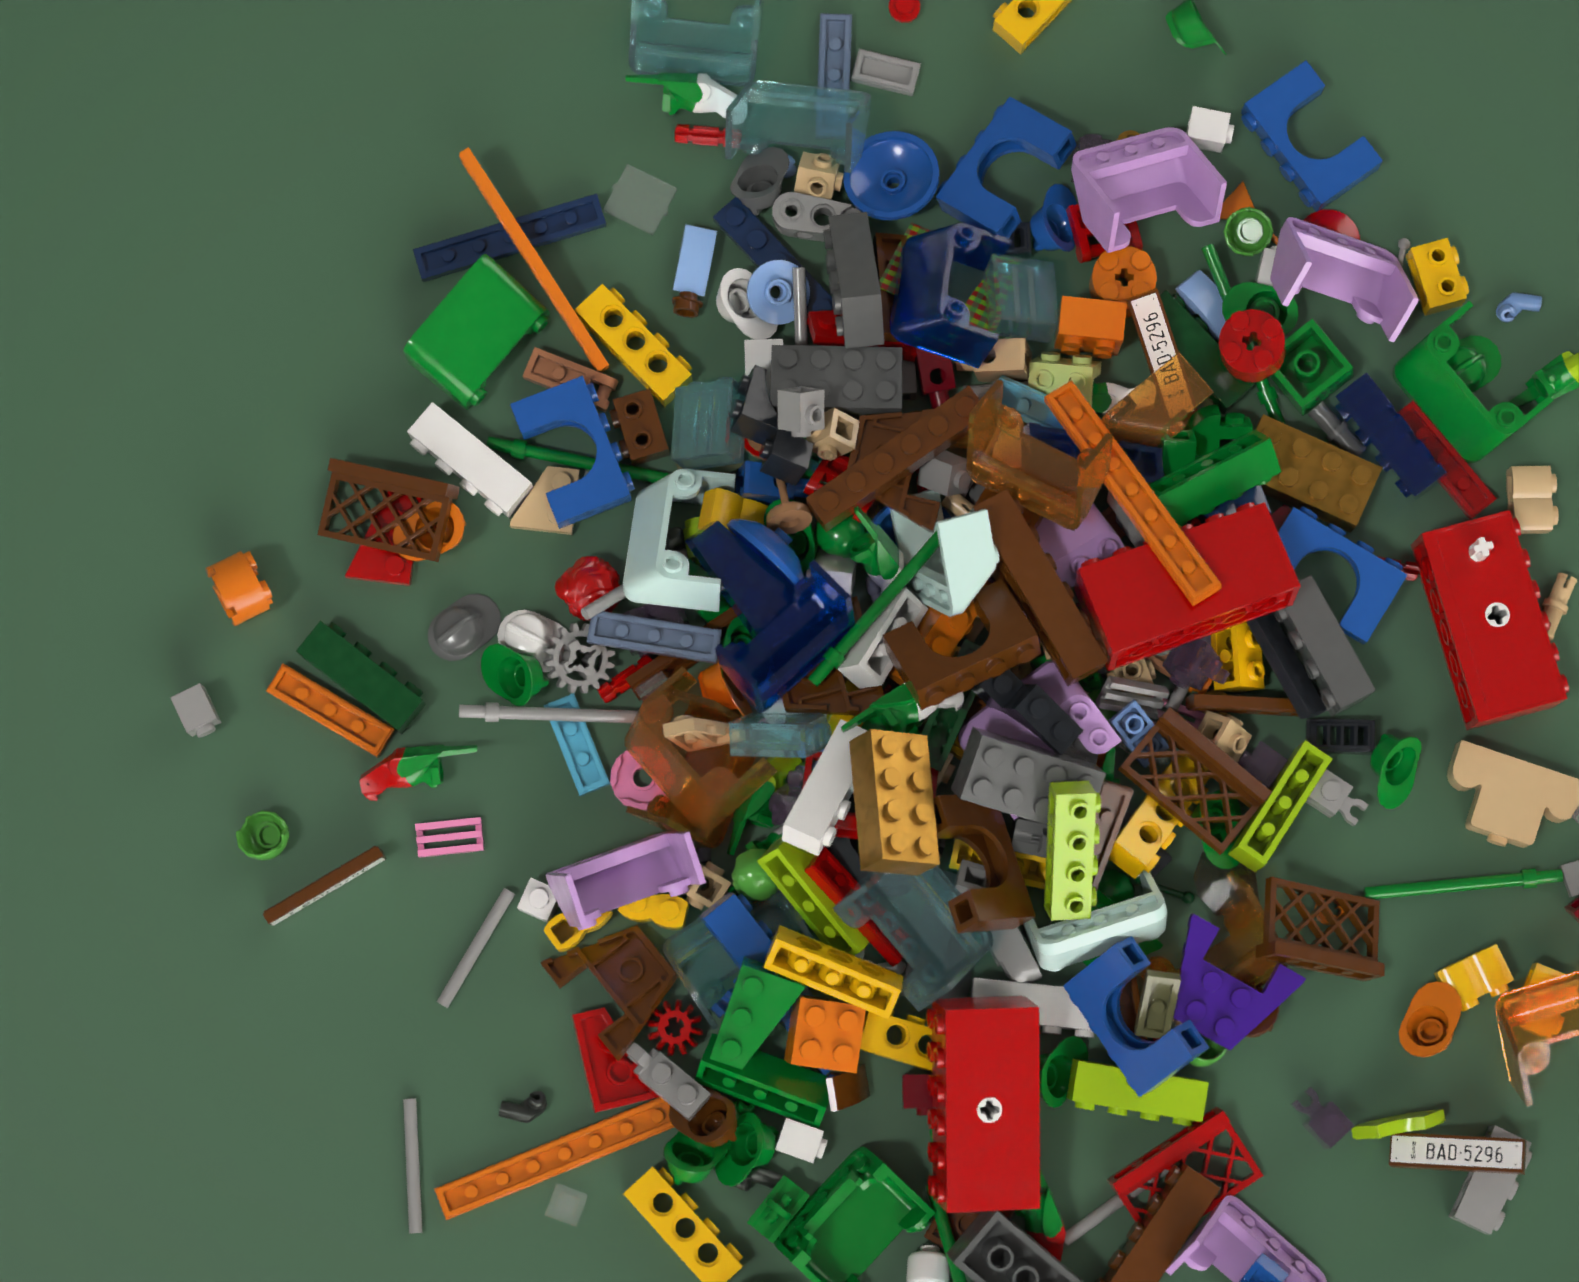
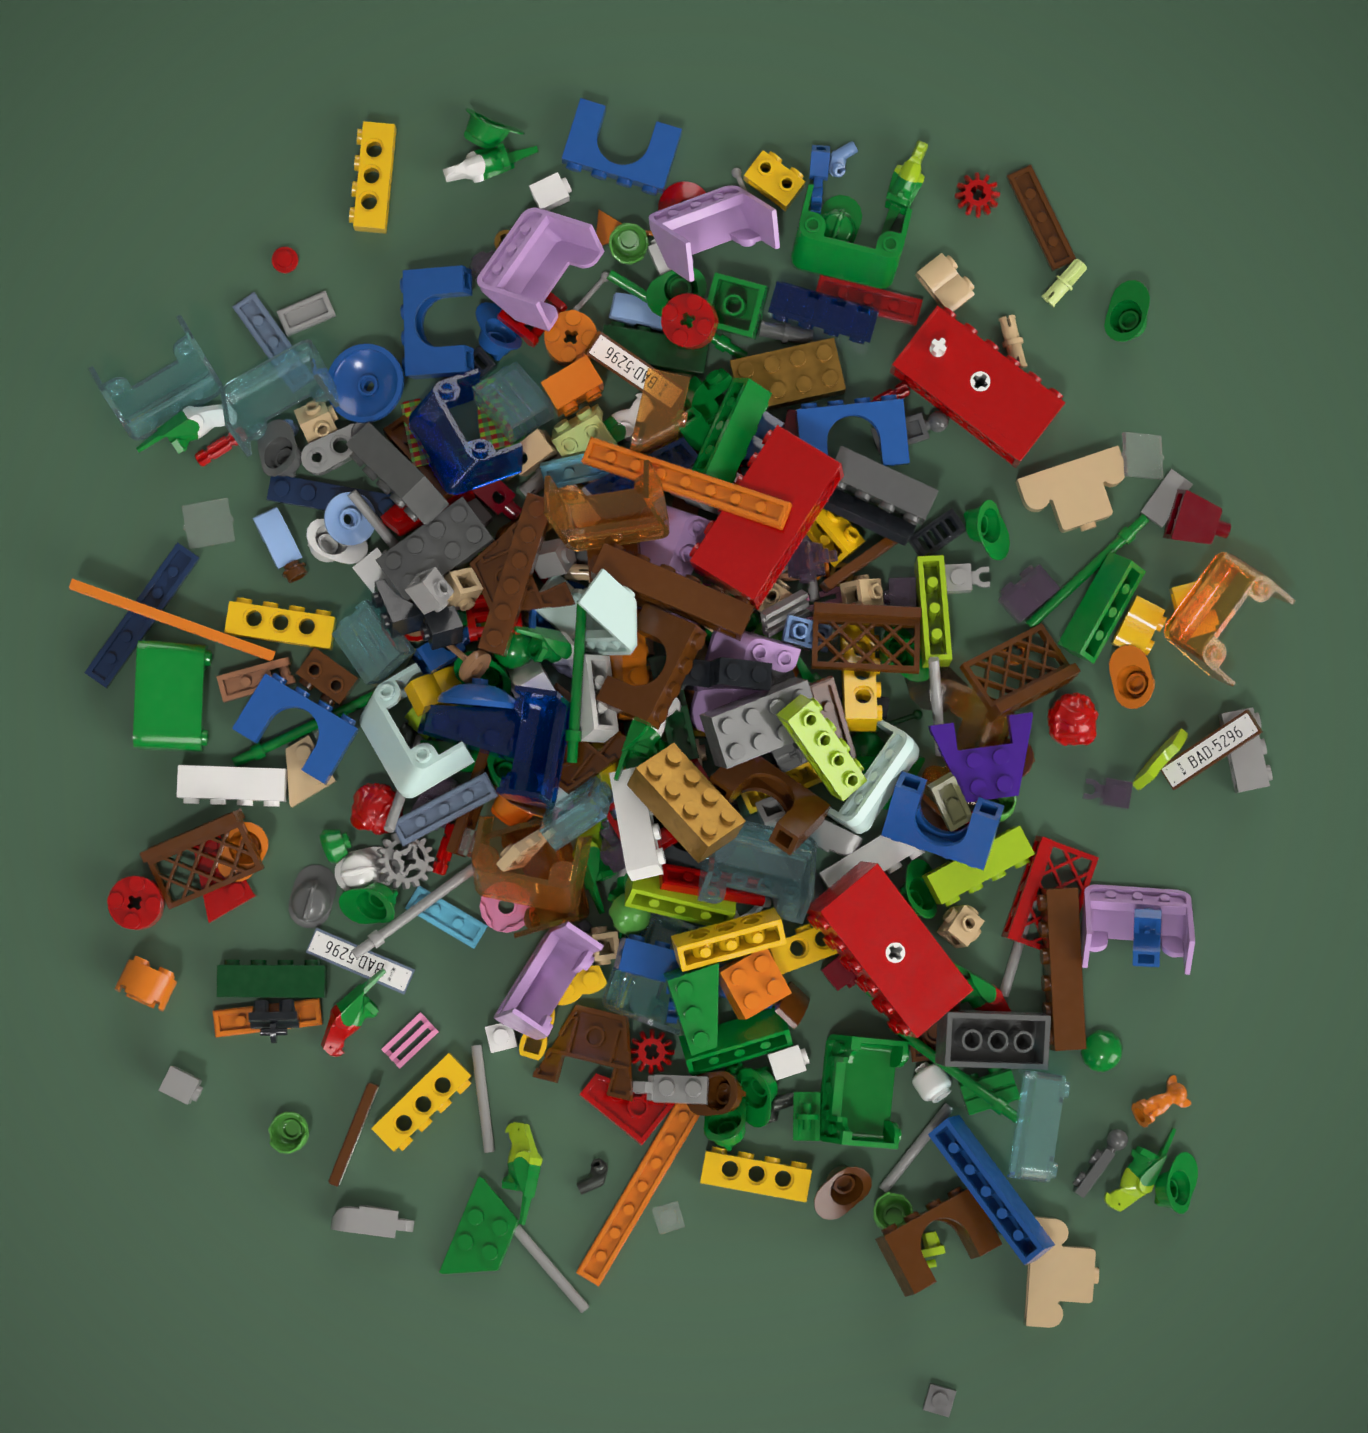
camera: 40 degrees left, 5 degrees up
(274, 982) = (370, 1221): none -> light grey piece
(277, 491) = (120, 903): none -> red brick
(330, 717) = (273, 1023): none -> black hips
(361, 906) = (387, 1126): none -> yellow brick
(372, 1079) = (481, 1234): none -> green wing
(445, 698) = (338, 952): none -> white tile
(463, 1044) = (523, 1165): none -> animal
(523, 593) = (335, 844): none -> green cone
(1074, 1137) = (961, 926): none -> tan brick
(1167, 58) = (487, 163): none -> animal
(1167, 255) = (603, 279): none -> light grey hinge
(1222, 888) = (936, 695): none -> light grey bar
(1339, 1019) = (1072, 720): none -> red hair
(1387, 861) = (1028, 593): none -> clear purple brick
(1399, 618) = (918, 429): none -> dark grey plate
(1451, 929) = (1098, 607): none -> green brick
(1485, 302) = (818, 172): none -> blue piece

